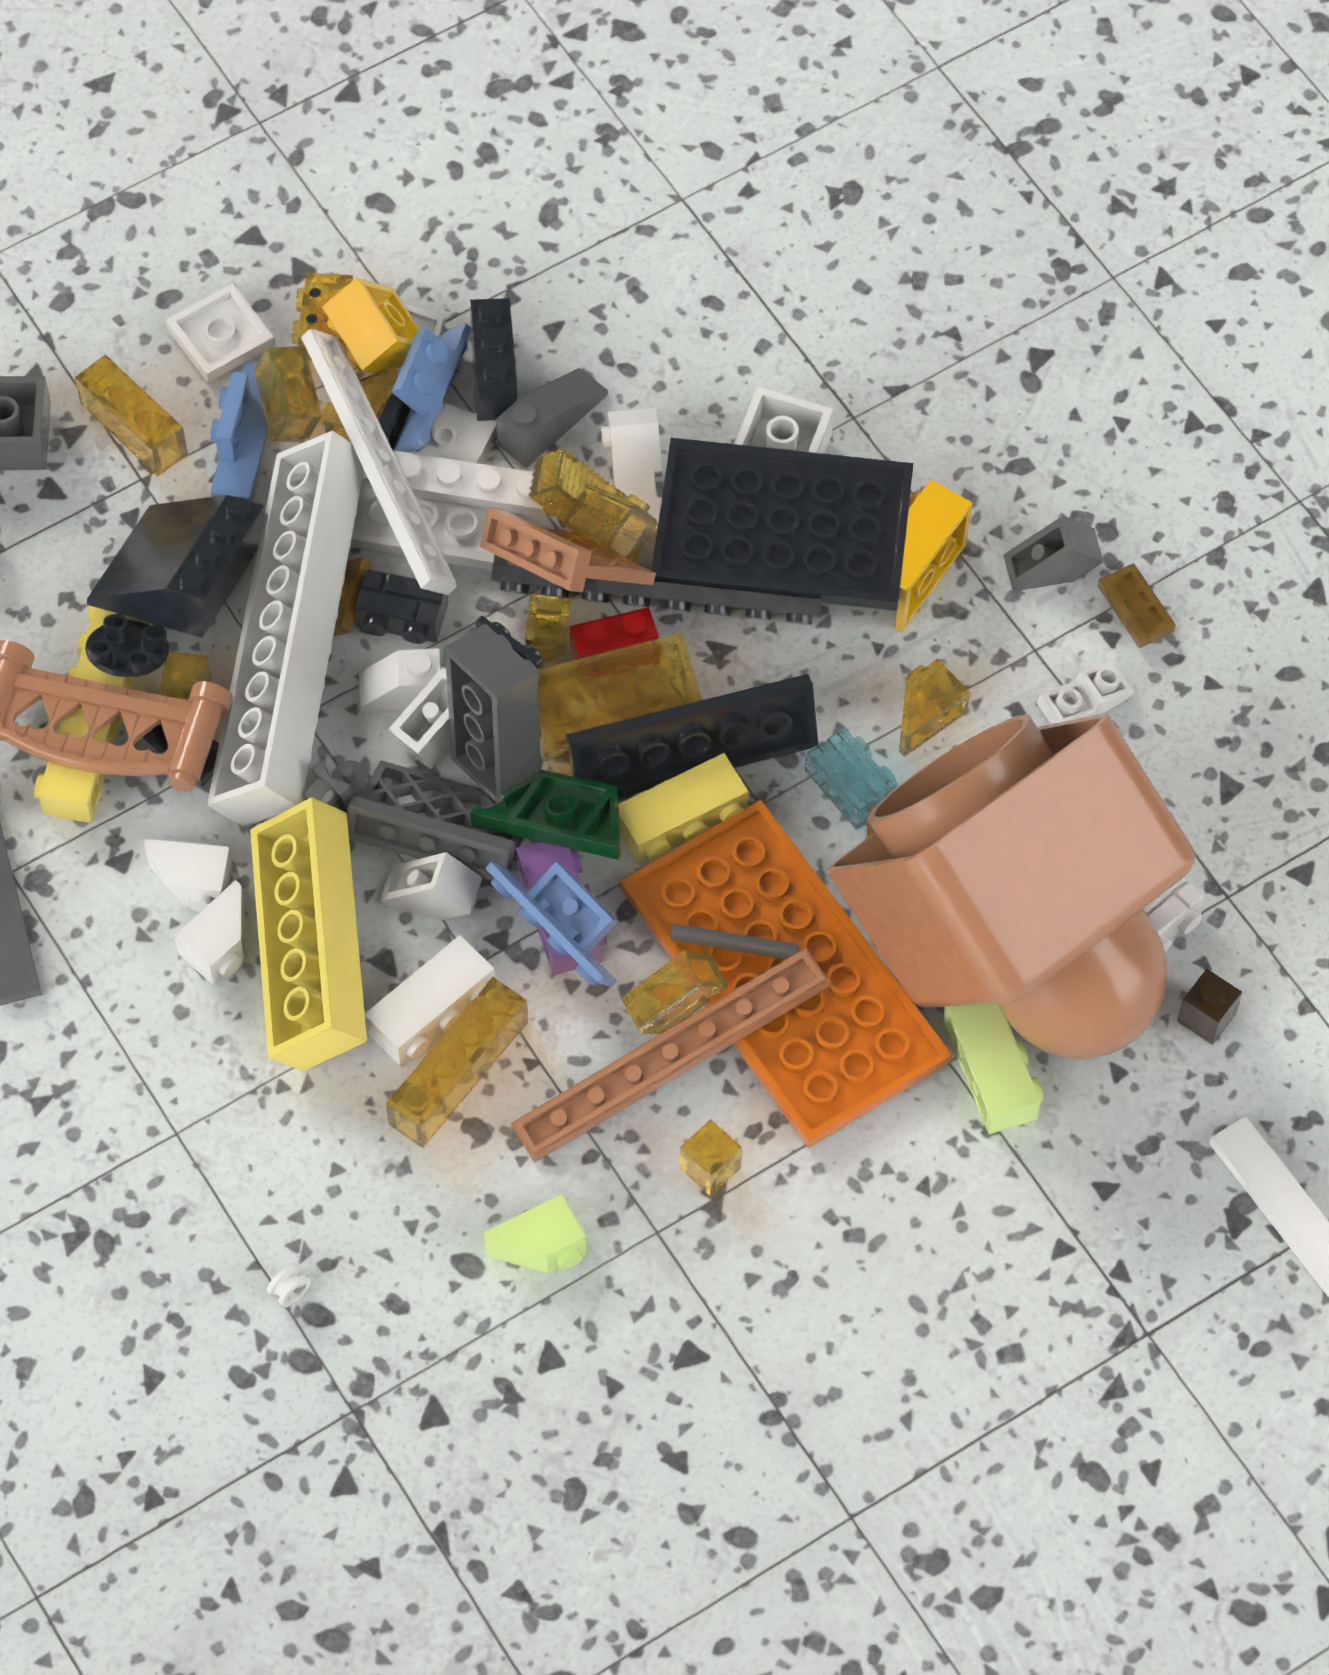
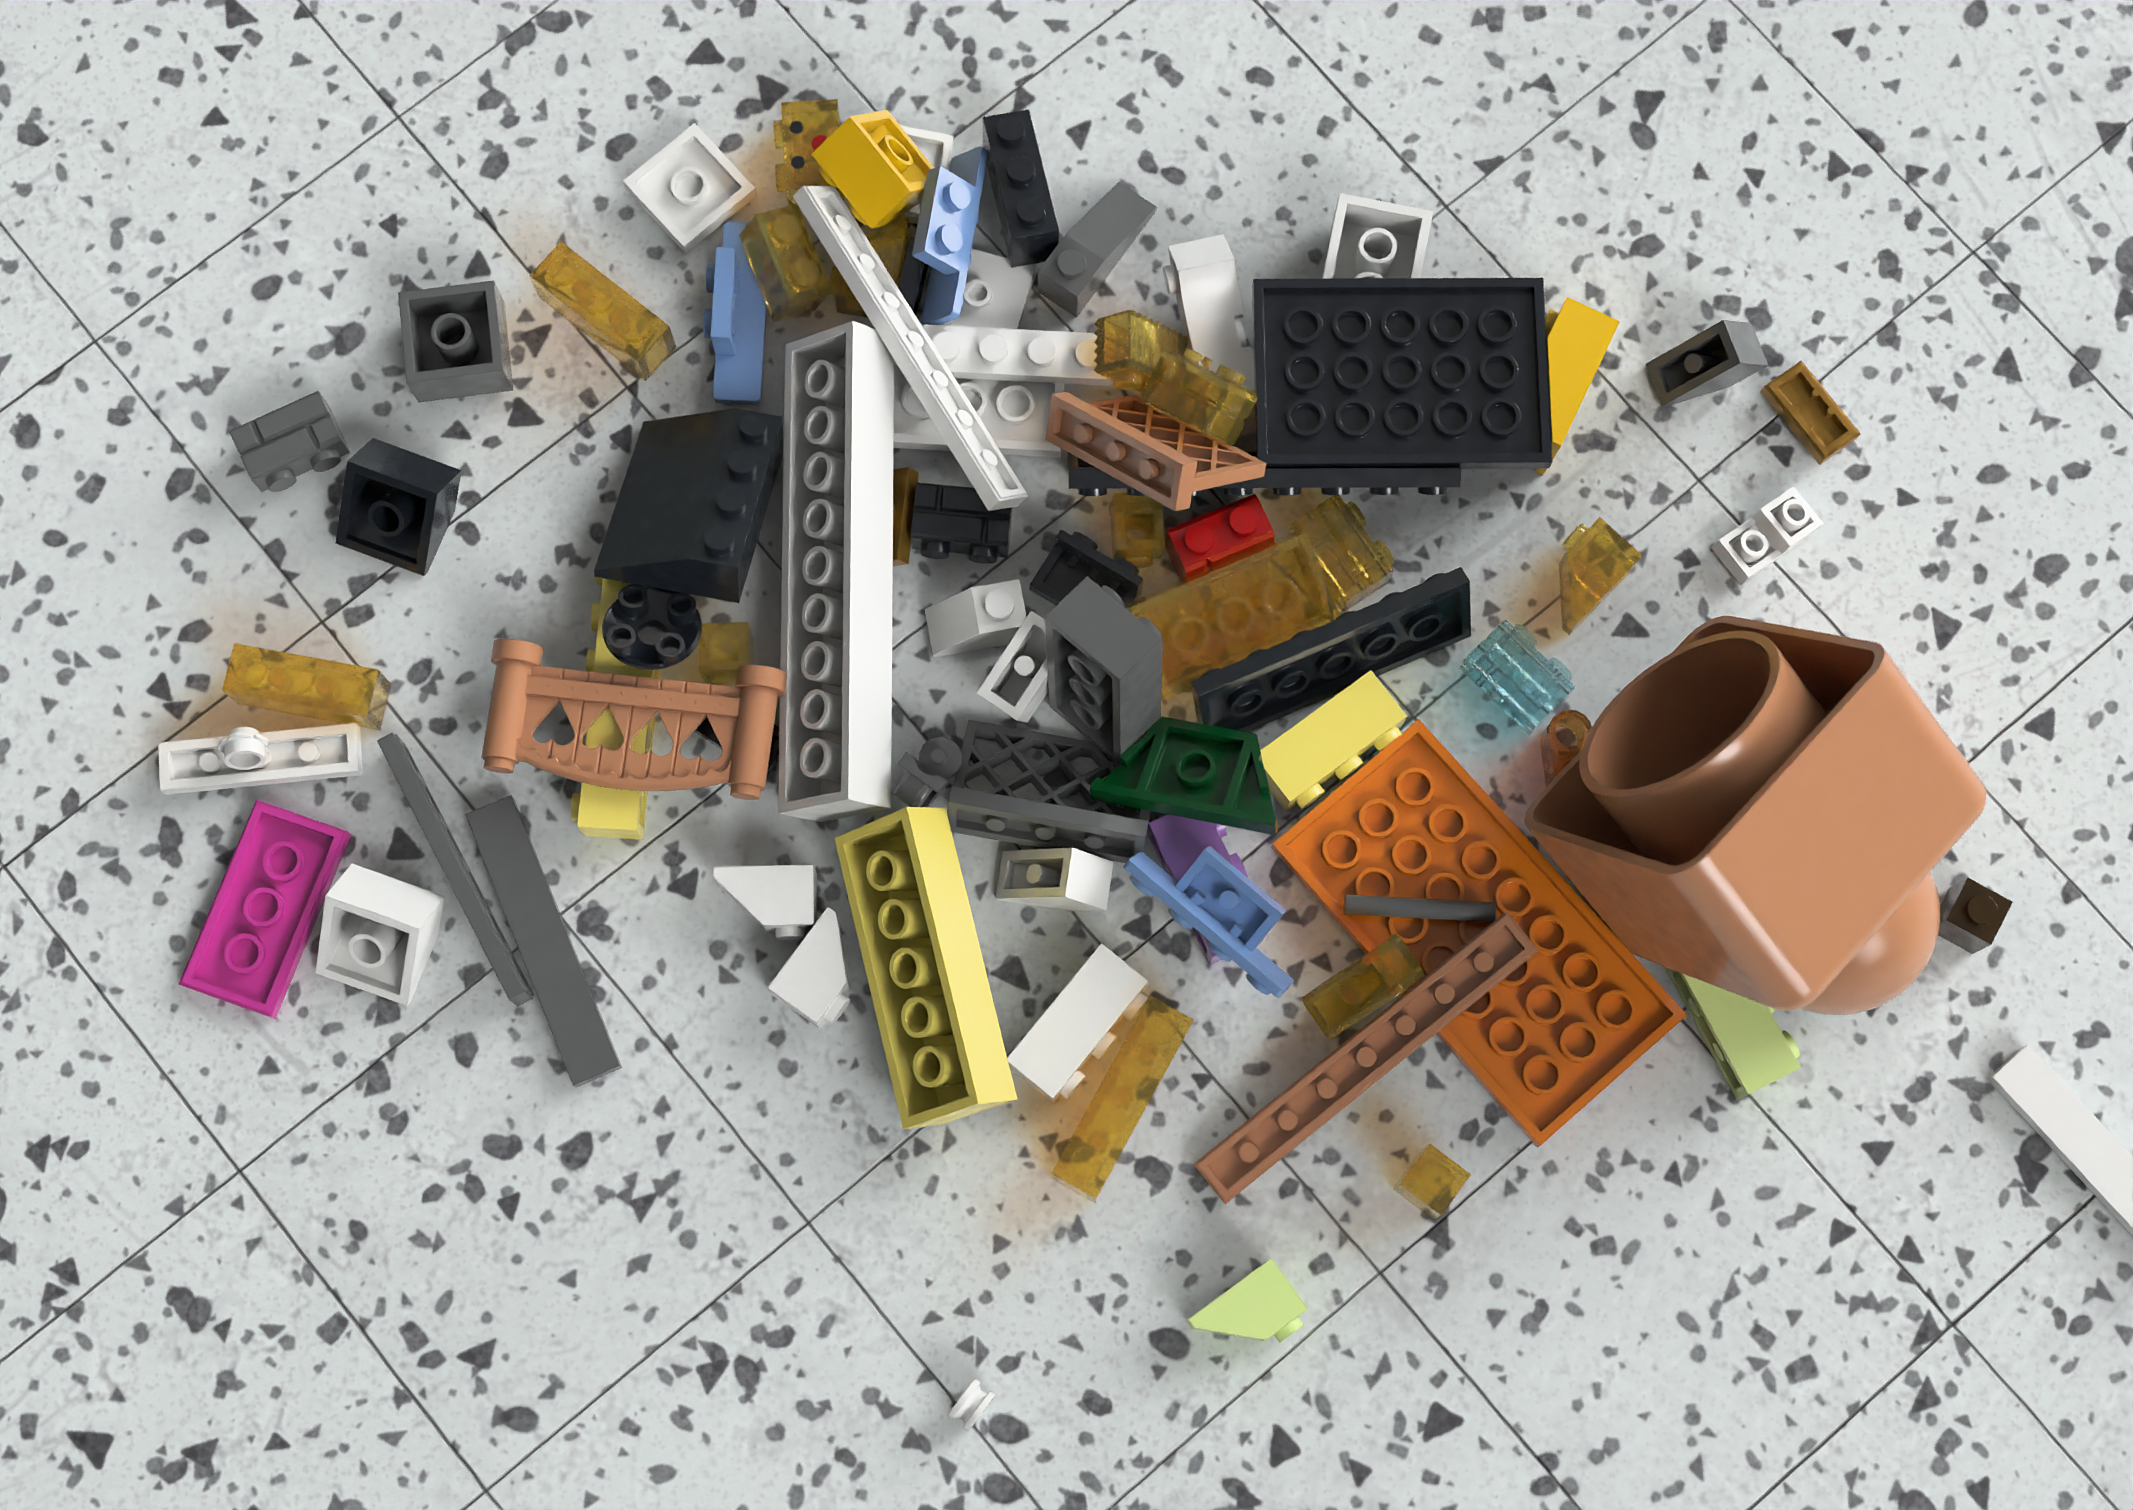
camera: 10 degrees left, 15 degrees up
(717, 659) = (1345, 552): none -> clear yellow brick

